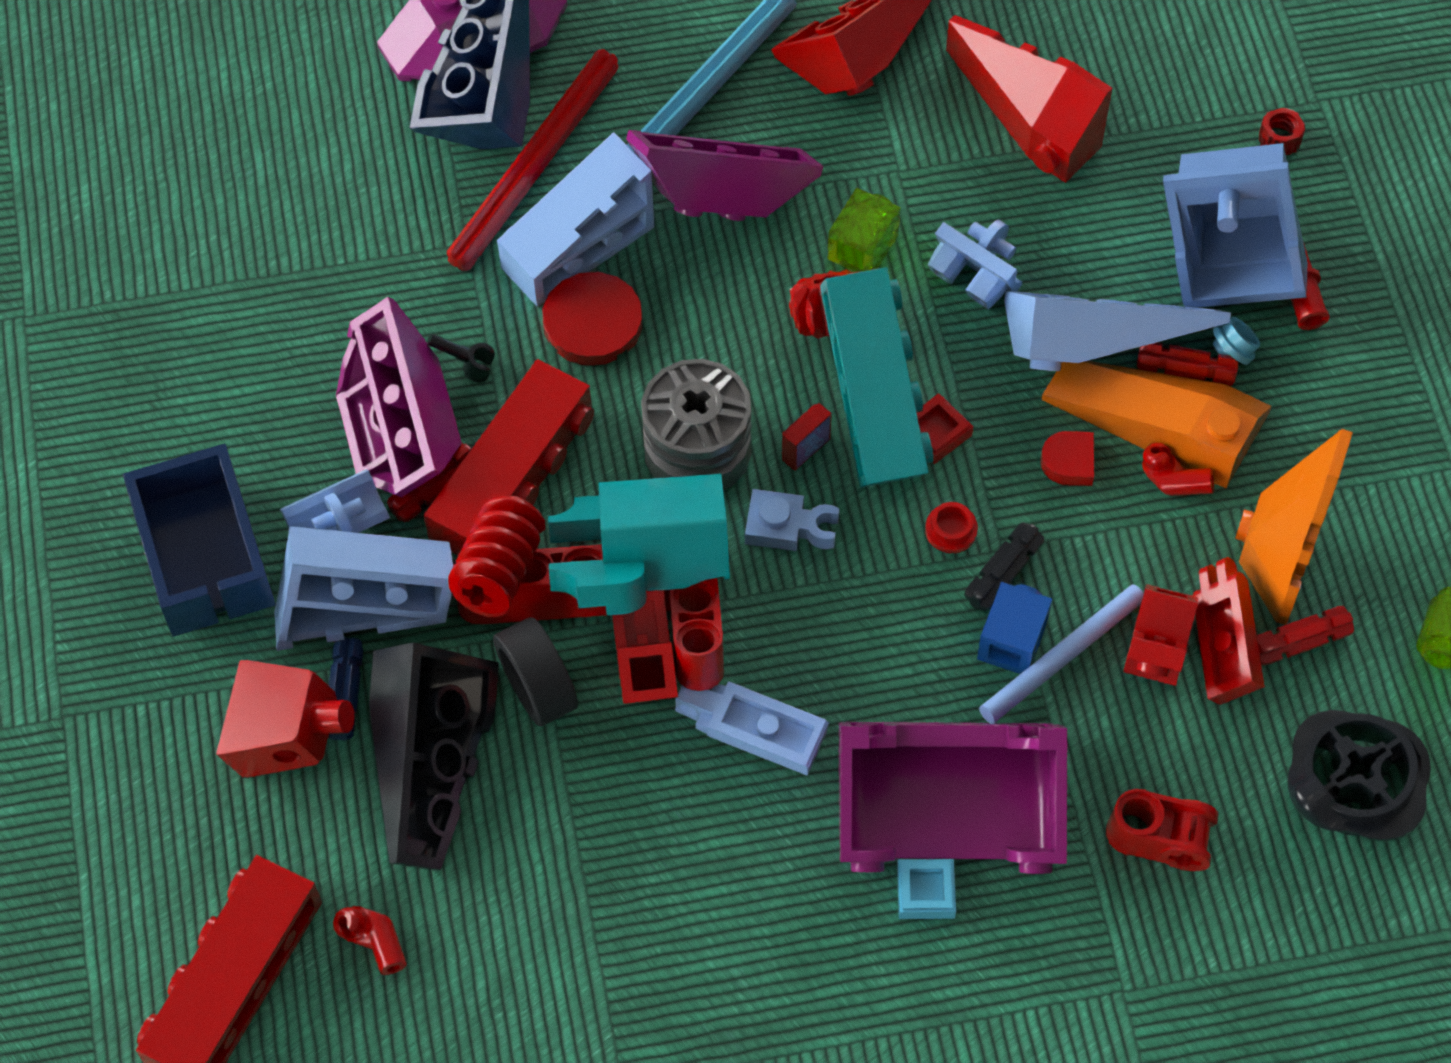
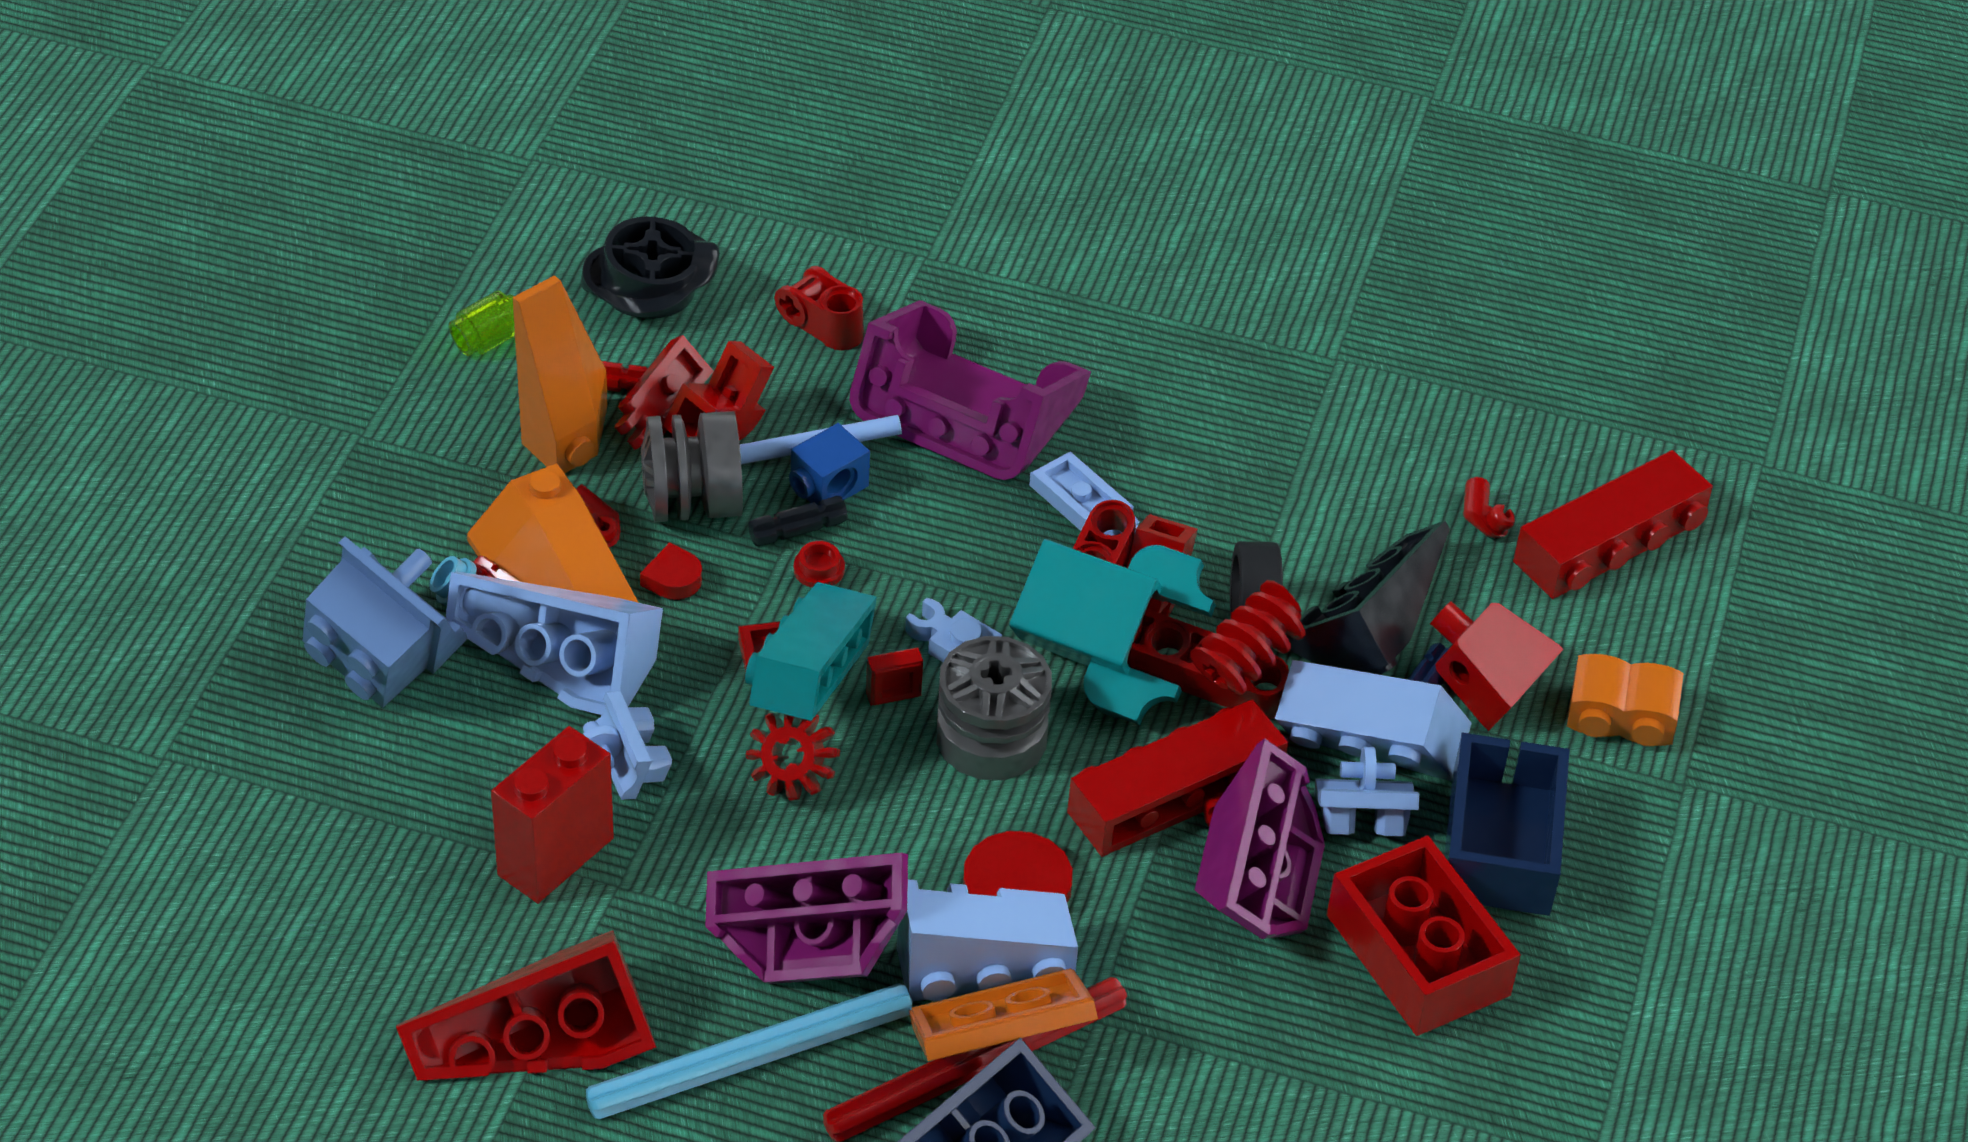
camera: 155 degrees left, 15 degrees down
(142, 753) = (1625, 700): none -> orange brick
(225, 390) = (1422, 935): none -> red brick
(479, 351) = (1159, 887): black hand -> none
(518, 160) = (1002, 1014): none -> orange tile
(863, 231) = (707, 818): clear neon green brick -> none
(926, 889) = (1025, 359): medium azure tile -> none
(967, 136) = (553, 814): none -> red brick
(1046, 106) = (448, 837): red wedge -> none
(1121, 529) = (693, 466): none -> flat silver wheel
(1284, 119) = (234, 748): red axle -> none

